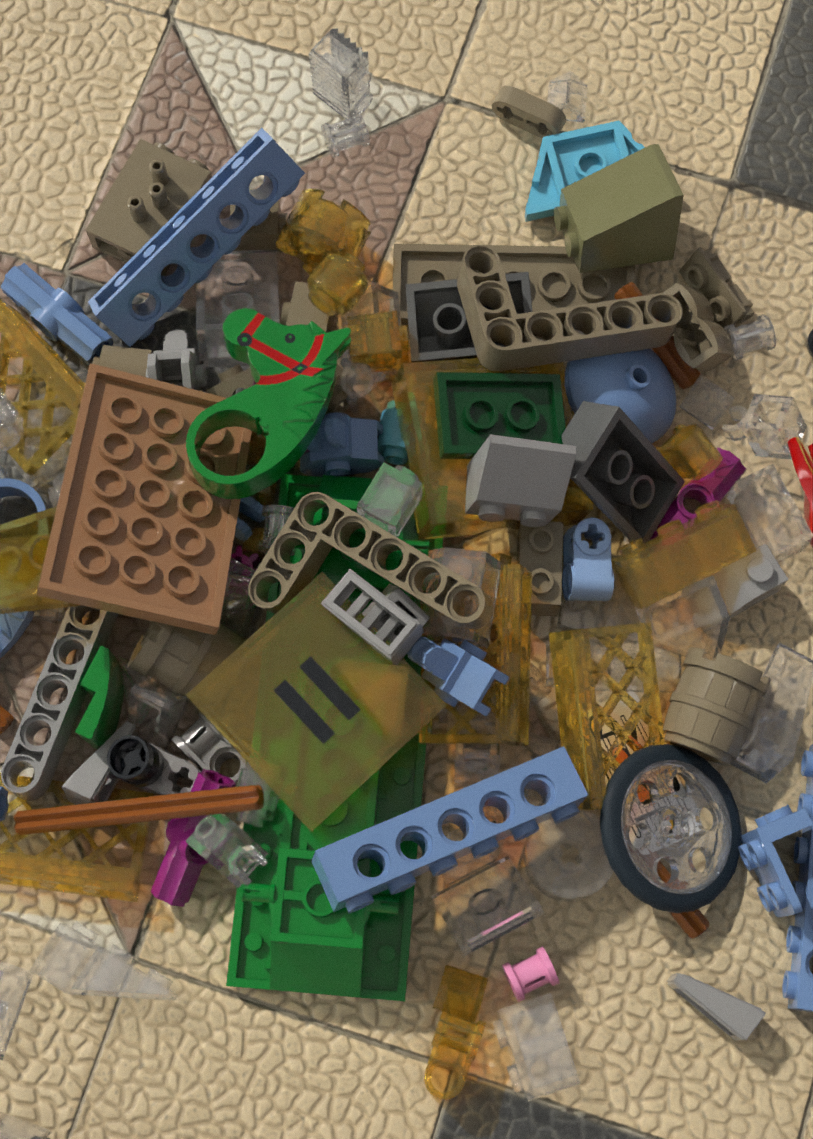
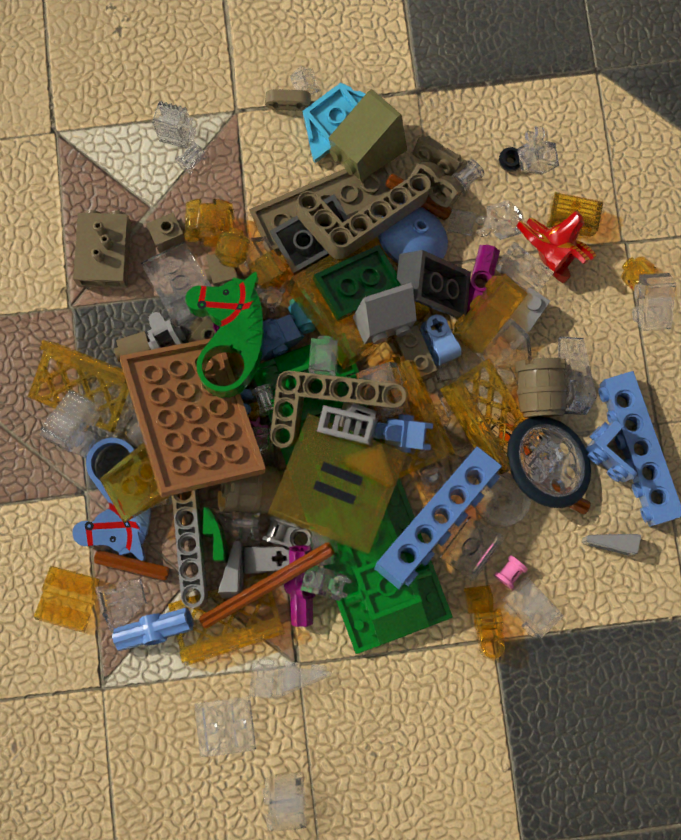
camera: 25 degrees left, 5 degrees up
(55, 313) = (79, 334): medium blue piece -> none
(127, 755) = (246, 561): black wheel -> none
(198, 216) = (135, 246): medium blue brick -> none
(690, 452) = (466, 254): clear yellow piece -> none

